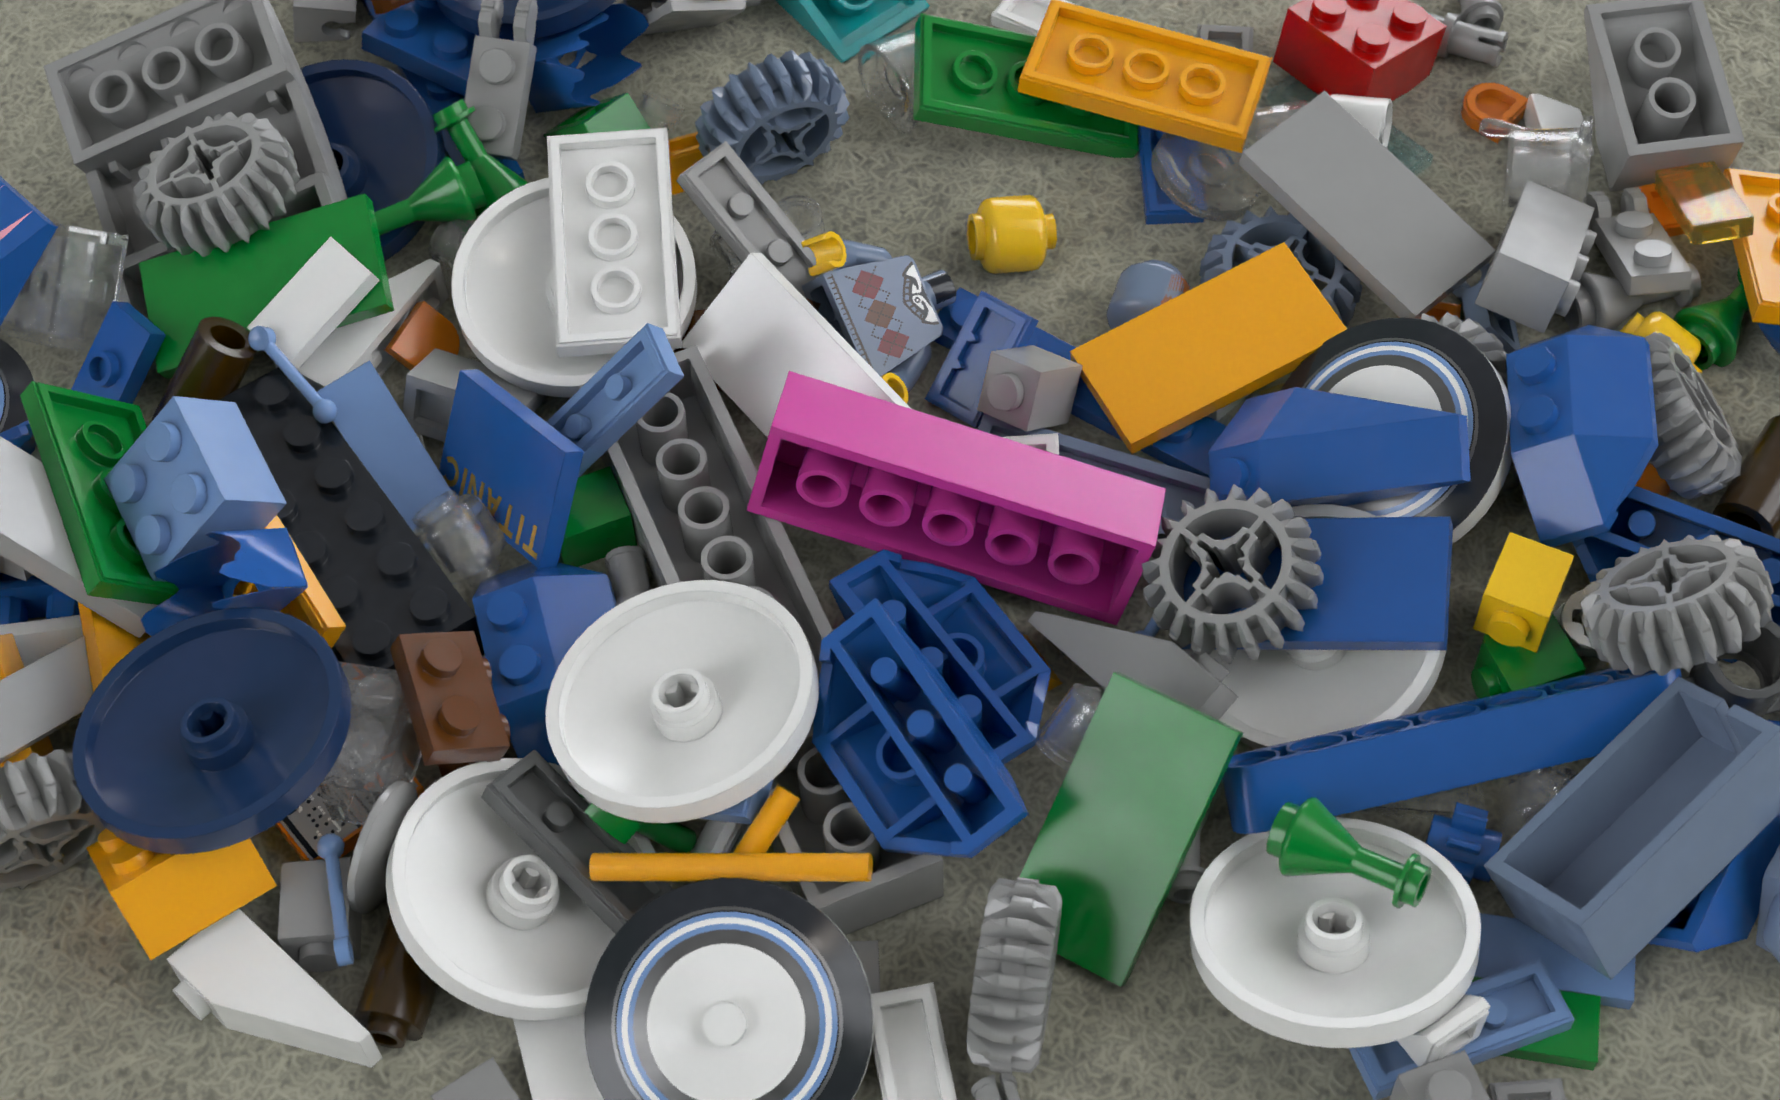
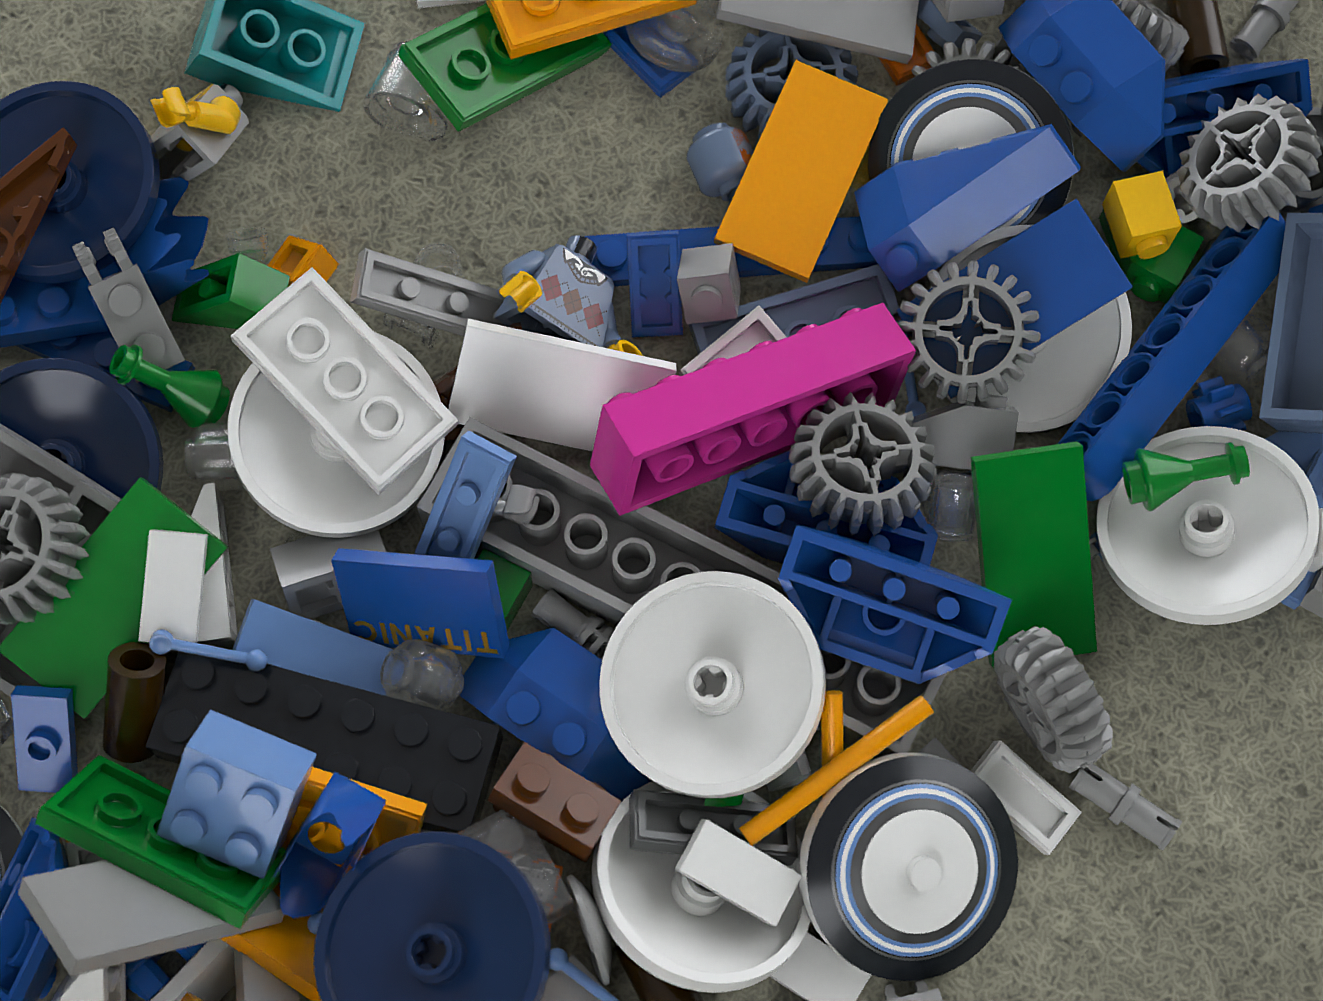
camera: 45 degrees left, 15 degrees up
(421, 334) = (248, 546): orange tile -> none
(443, 196) = (174, 429): green piece -> none
(555, 891) = (738, 872): none -> white tile
(662, 438) = (519, 506): none -> light grey hand
(776, 114) = (356, 199): sand blue gear -> none
(1010, 234) = (588, 172): yellow head -> none
(1028, 613) = (882, 444): none -> light grey gear

